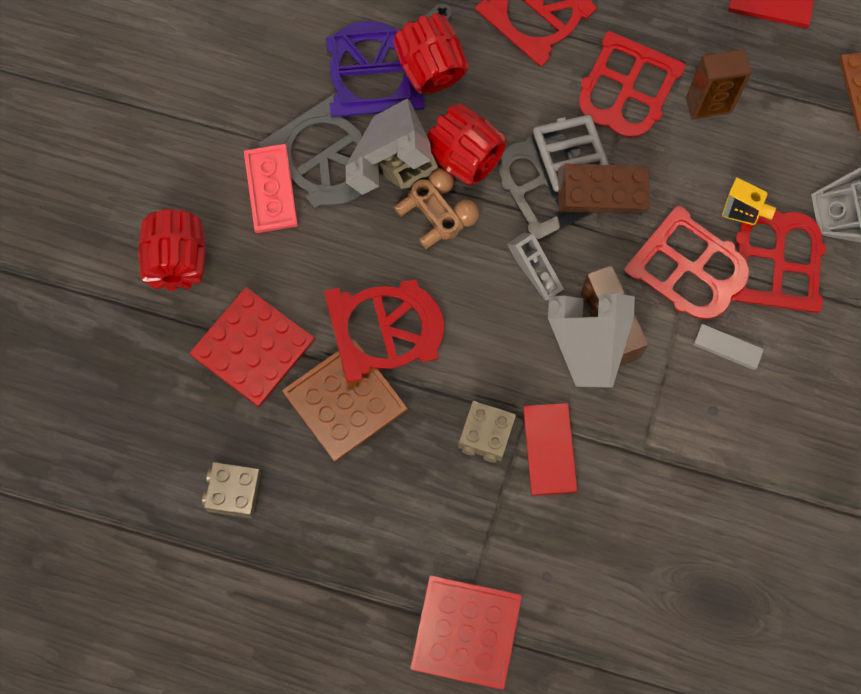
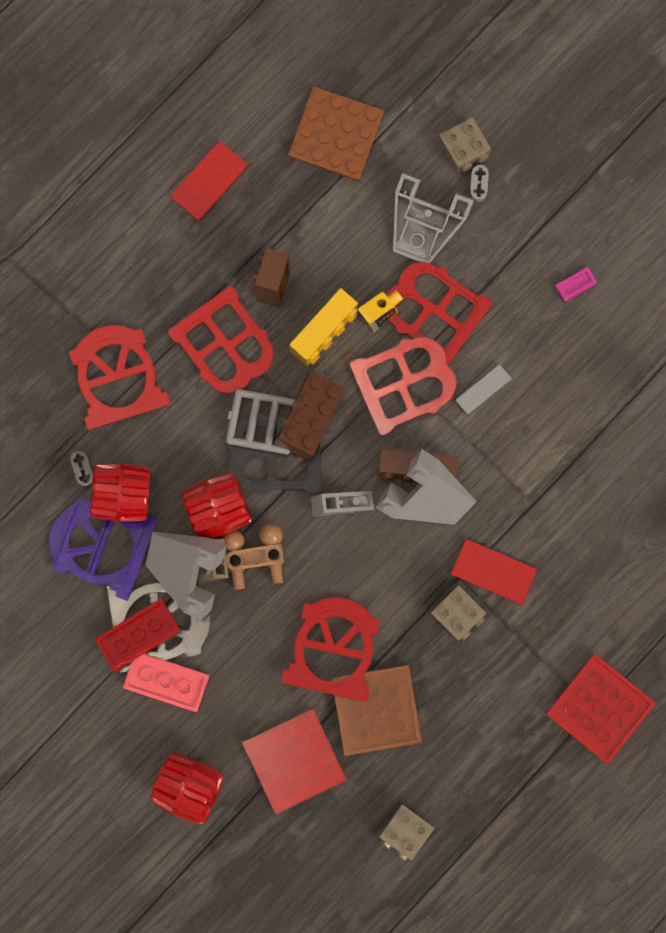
camera: 60 degrees left, 10 degrees up
(302, 138) = (137, 635): none -> red tile
(697, 161) = (324, 327): none -> yellow brick

